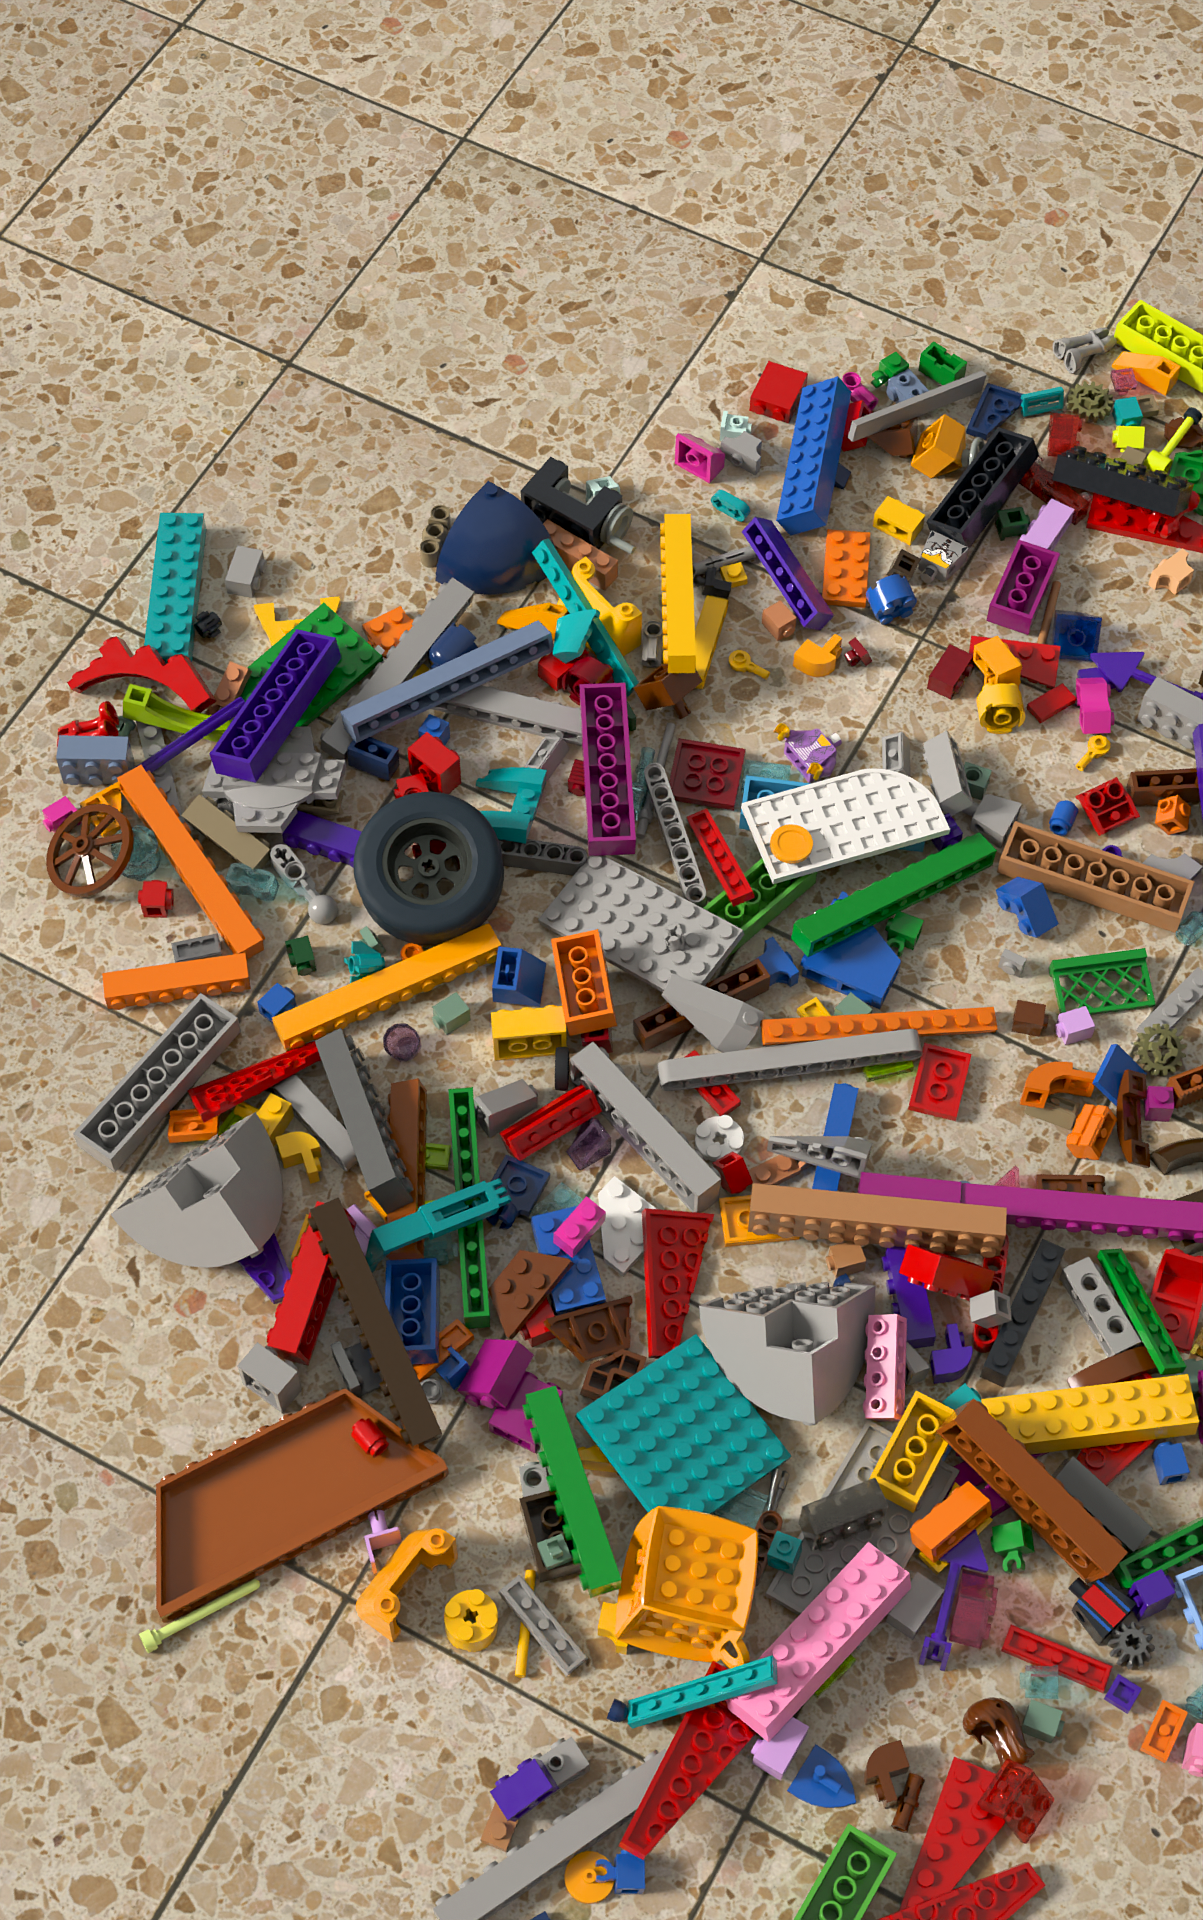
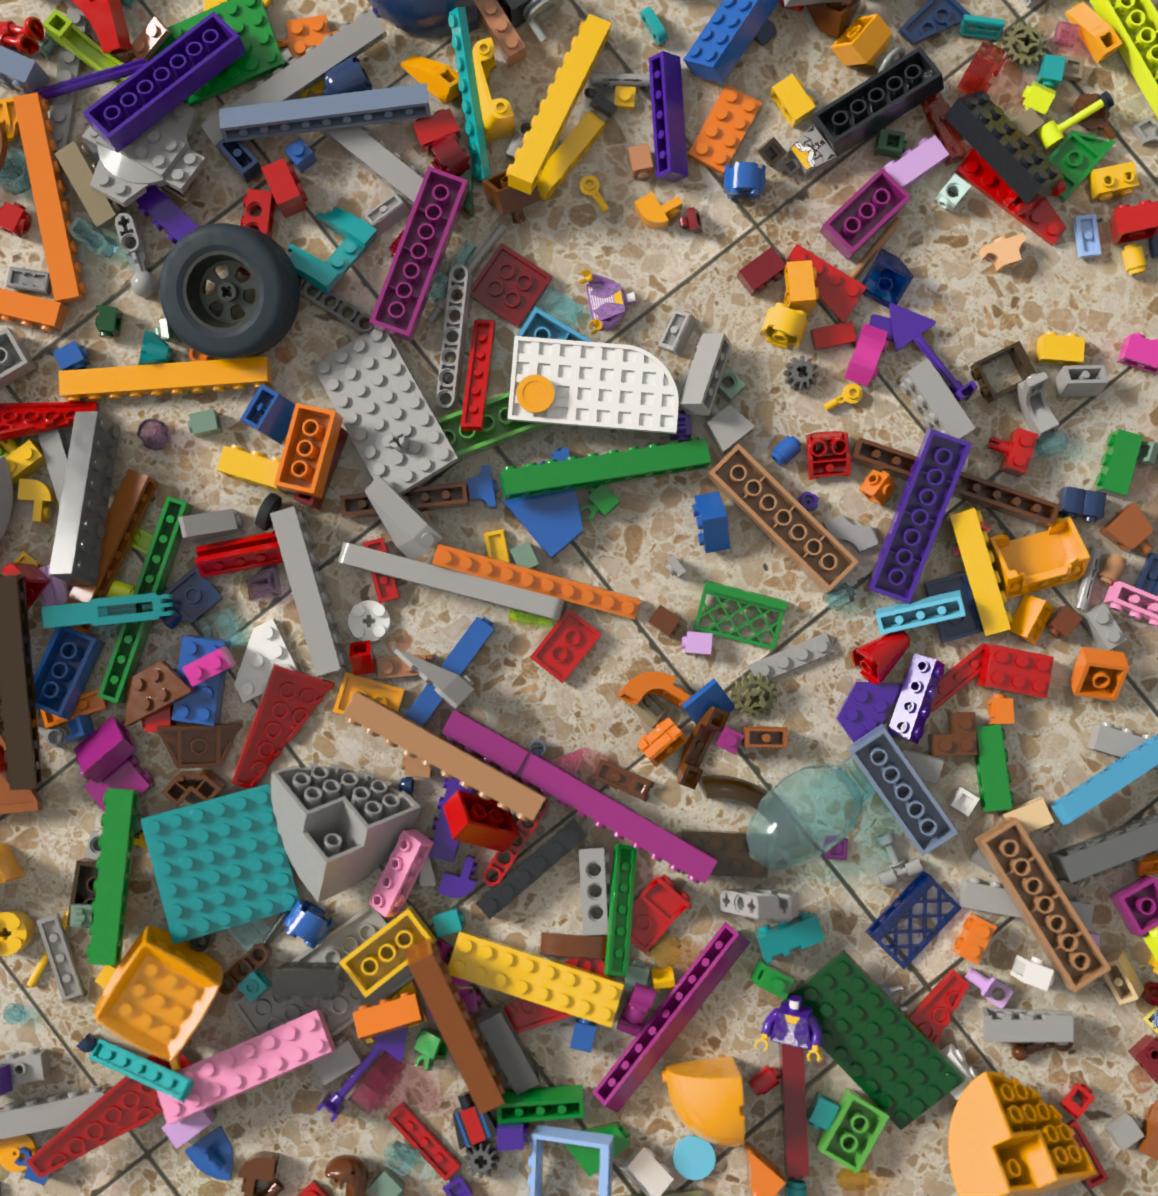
camera: 25 degrees right, 25 degrees up
(515, 1707) = (8, 1013): none -> clear light blue plate
(572, 634) = (448, 110): slope -> none
(810, 1463) = (308, 923): none -> blue brick
(990, 1309) = (499, 865): light grey brick -> none
(1039, 745) = (808, 376): none -> dark grey gear
(1095, 542) = (955, 185): none -> light aqua brick

